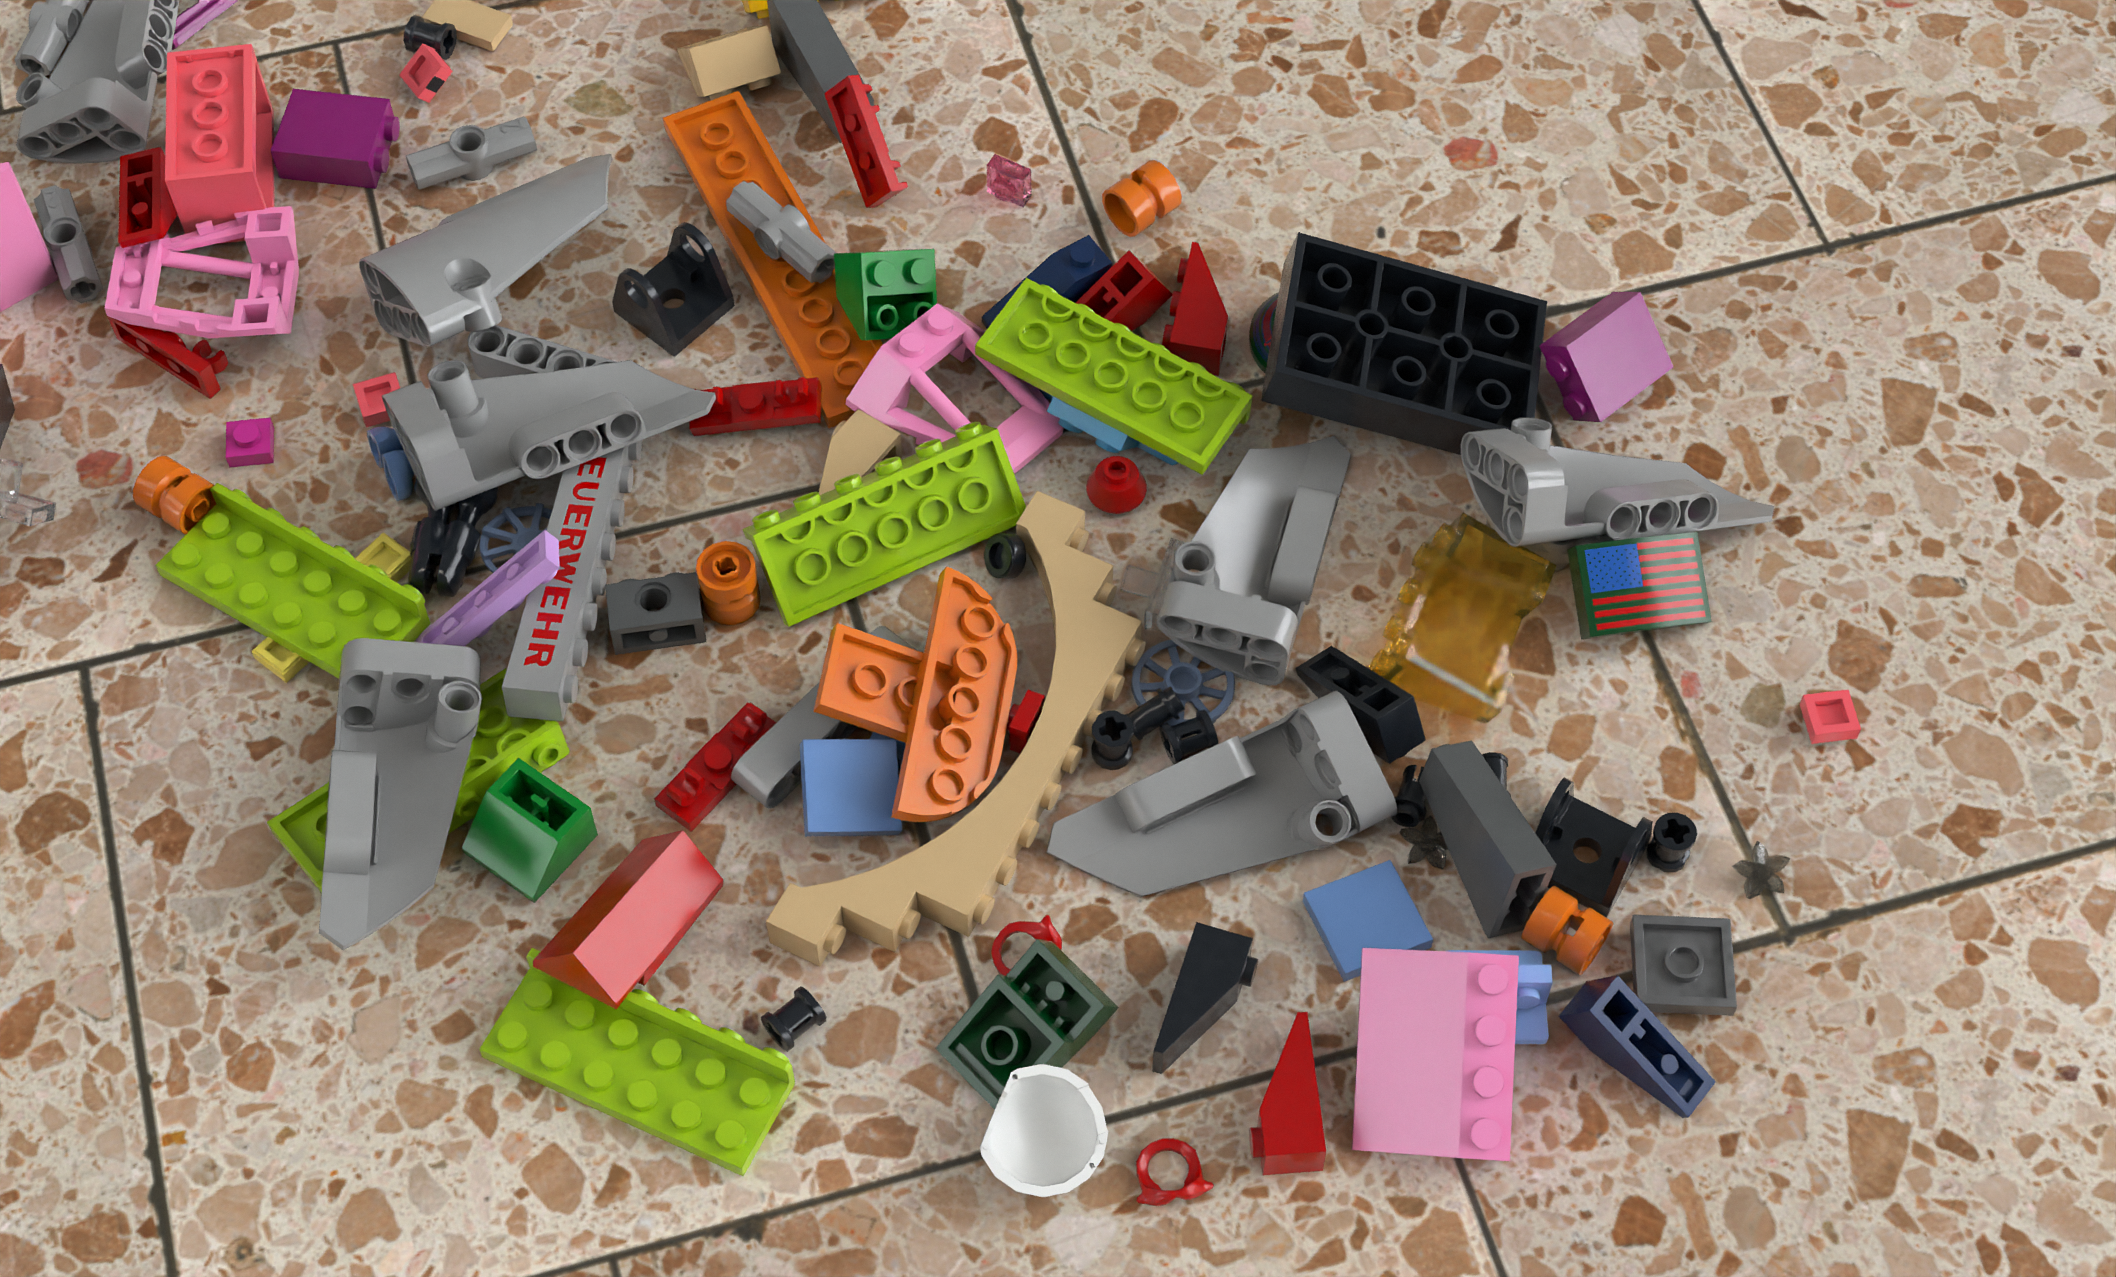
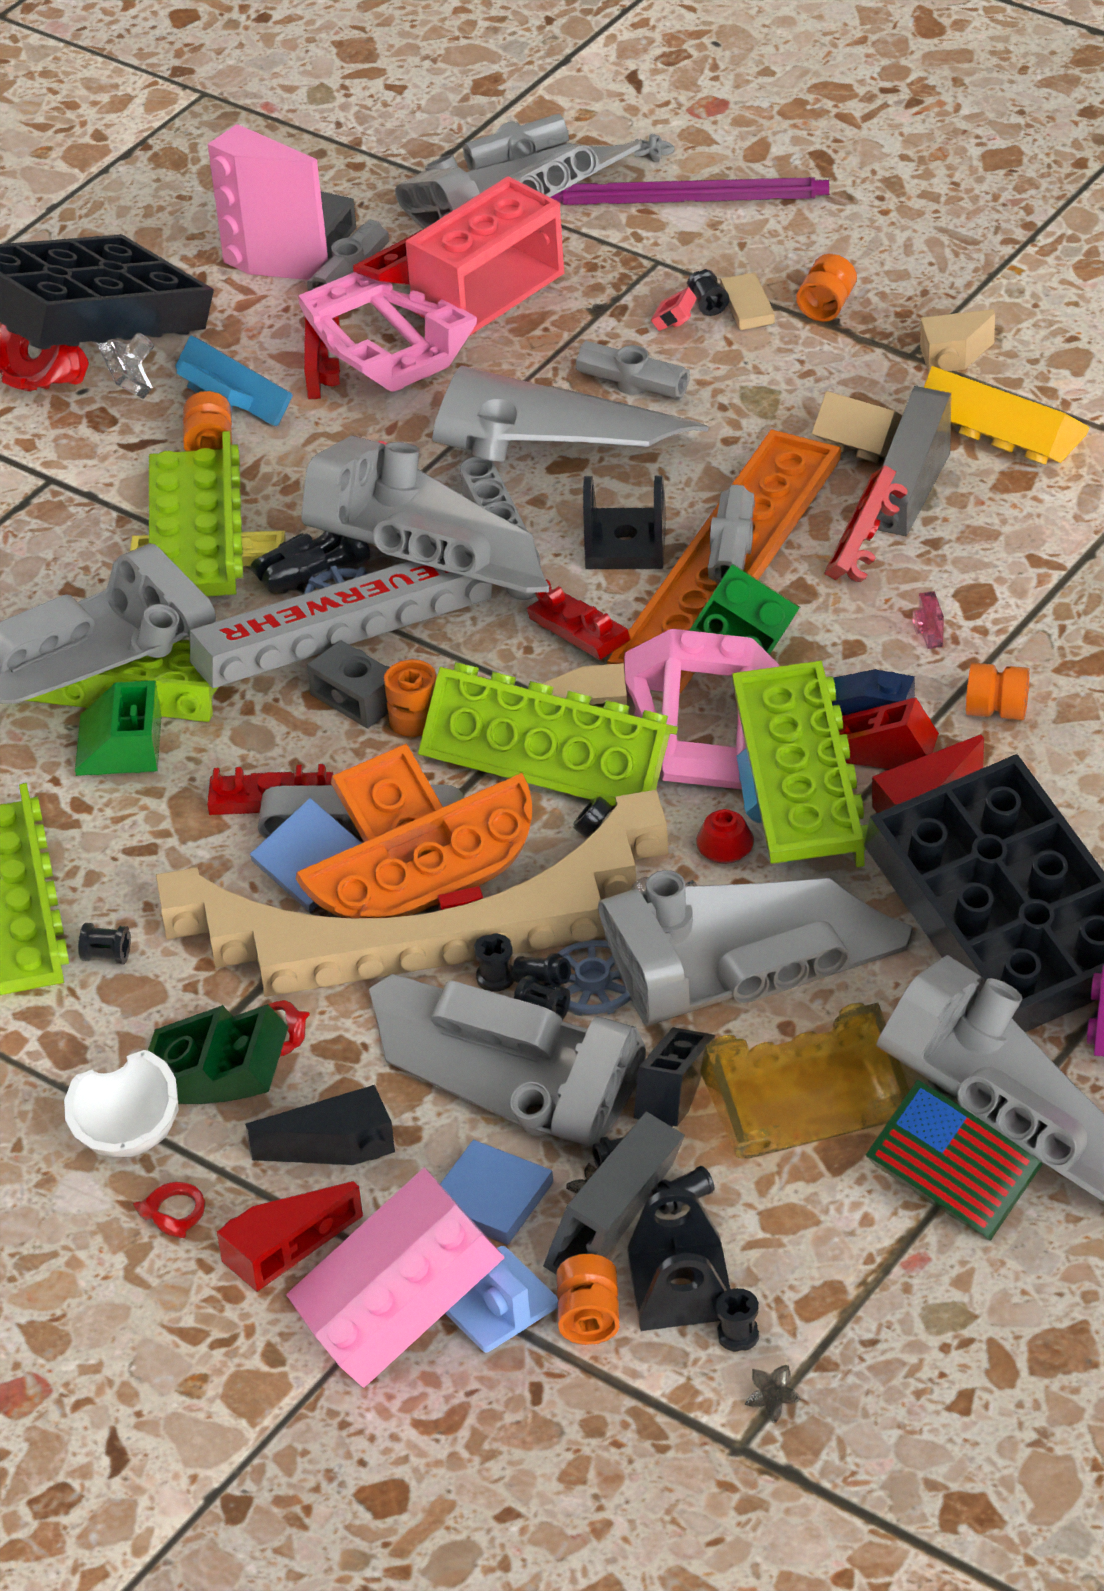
camera: 55 degrees right, 15 degrees down
(126, 438) = (242, 387): none -> dark azure bracket
(249, 442) = (290, 434): dark pink plate -> none
(335, 138) = (569, 307): magenta brick -> none
(497, 594) = (269, 591): lavender plate -> none
(633, 919) = (98, 819): slope -> none
(1636, 1044) = (528, 1400): dark blue slope -> none
(1683, 964) = (633, 1390): flat silver plate -> none
(1830, 716) = (969, 1354): coral plate -> none

